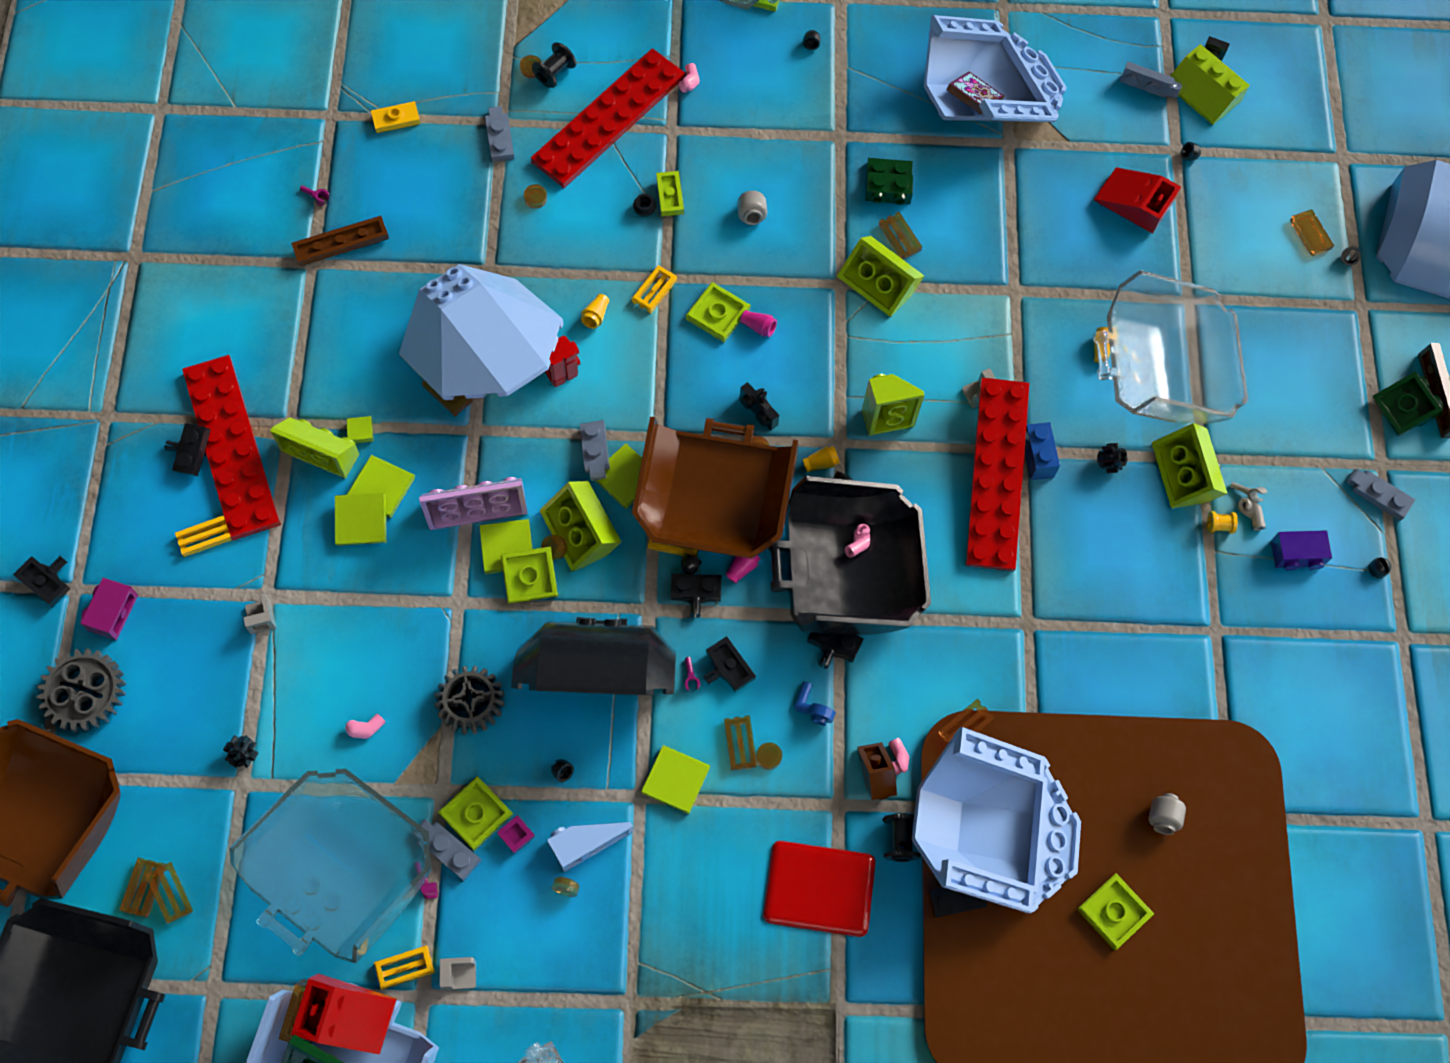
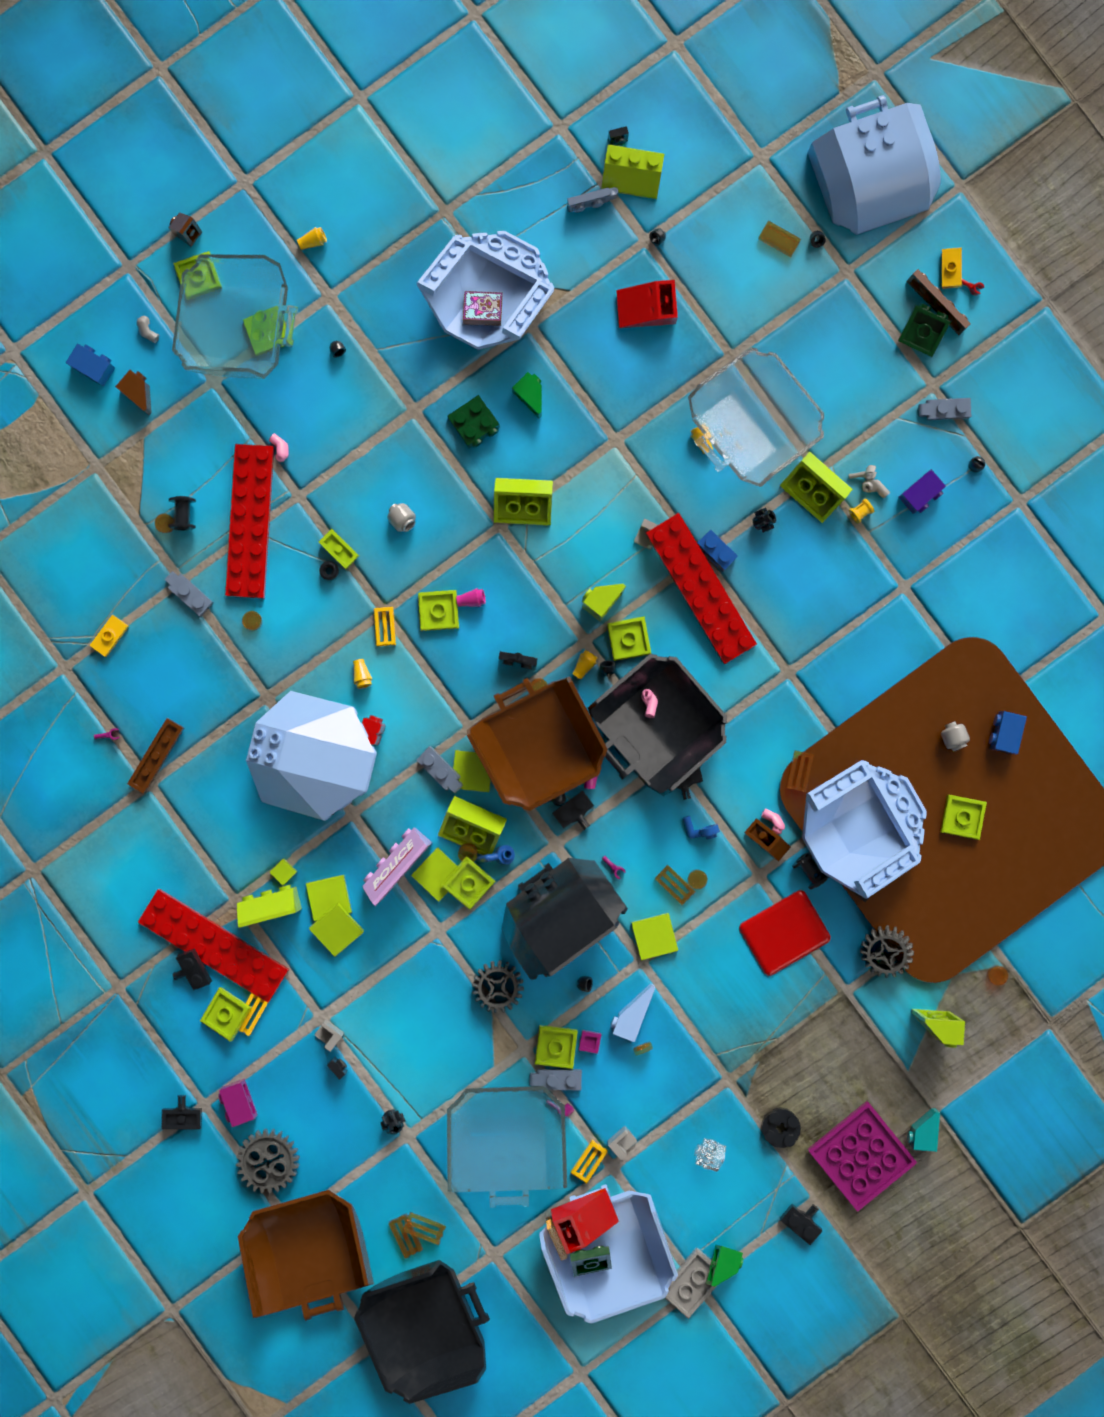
camera: 30 degrees left, 20 degrees up
(180, 516) = (225, 1014): none -> lime tile
(237, 652) = (338, 1067): none -> black plate
(362, 729) = (451, 1051): bright pink arm -> none
(582, 572) = (498, 856): none -> blue plate
(728, 665) = (631, 844): black plate -> none
(886, 466) = (629, 638): none -> lime tile
(916, 1004) = (894, 950): none -> dark grey gear
(917, 247) = (502, 446): clear orange tile -> none
(963, 191) = (530, 392): none -> green slope
(1230, 855) = (1007, 732): none -> blue brick

